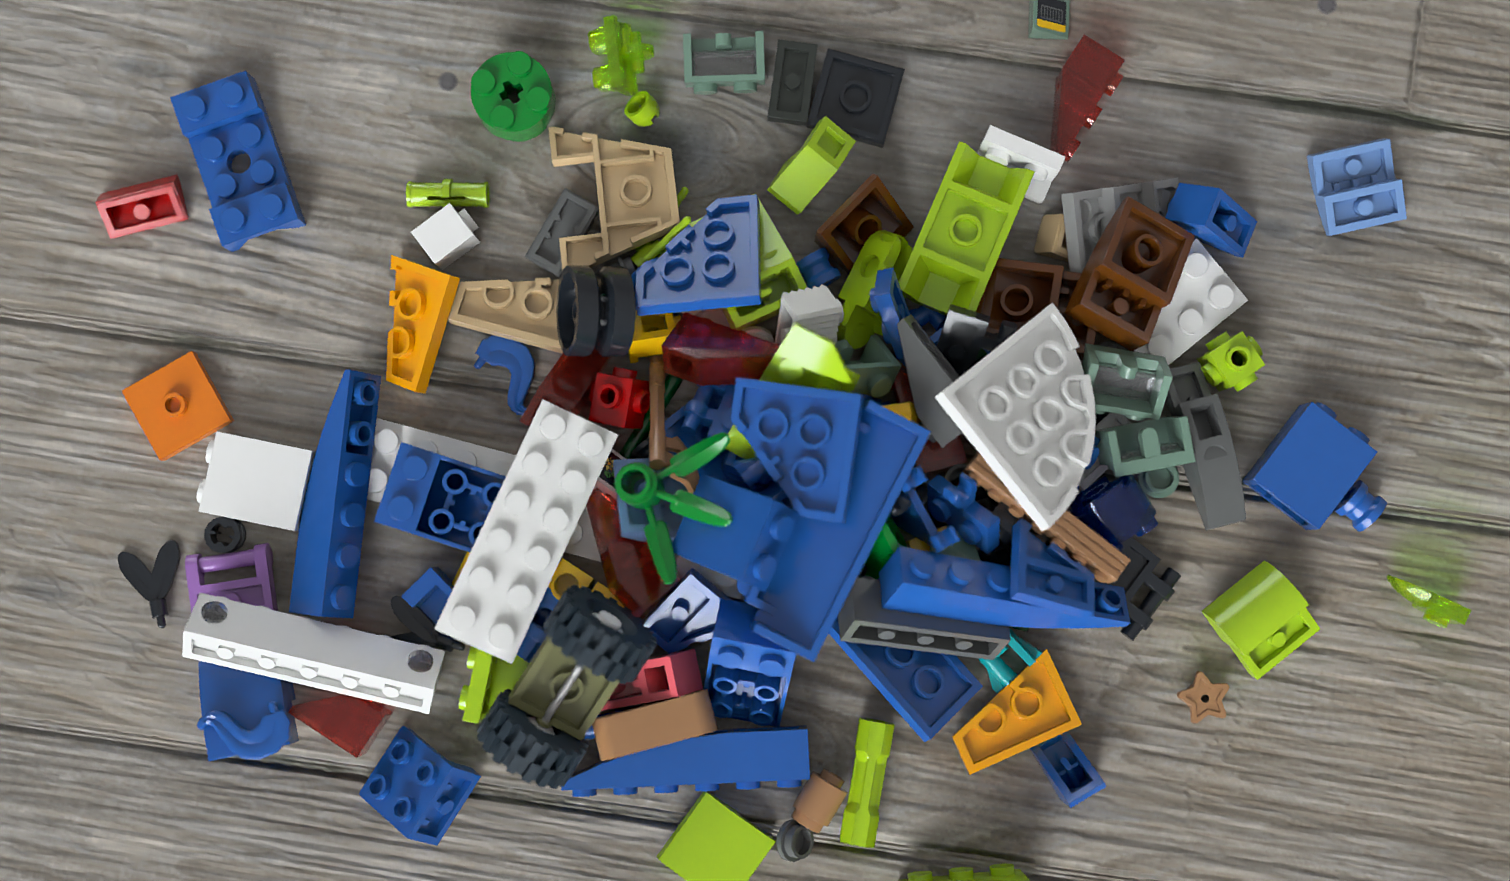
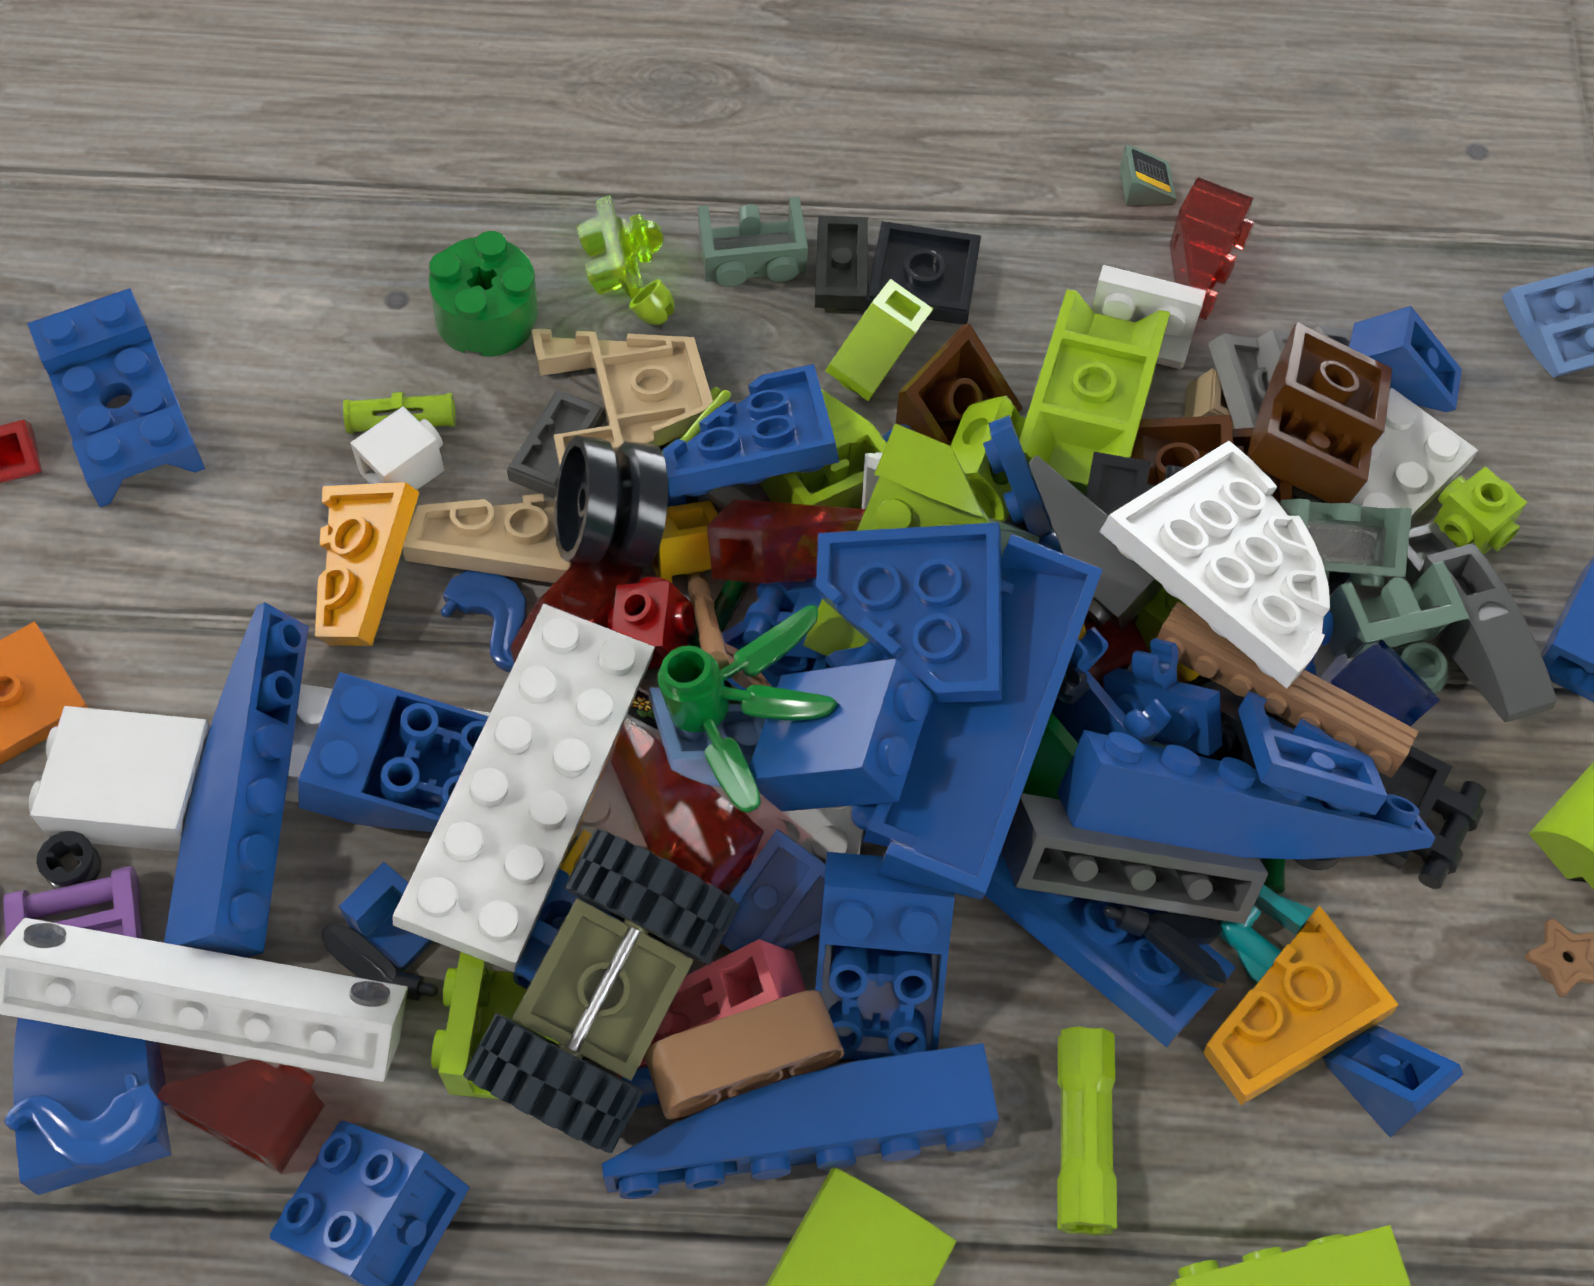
camera: 10 degrees left, 25 degrees down
(794, 841) = (987, 1235): dark grey plate -> none
(819, 800) = (1016, 1164): medium nougat brick -> none
(940, 668) = (1176, 938): none -> black piece

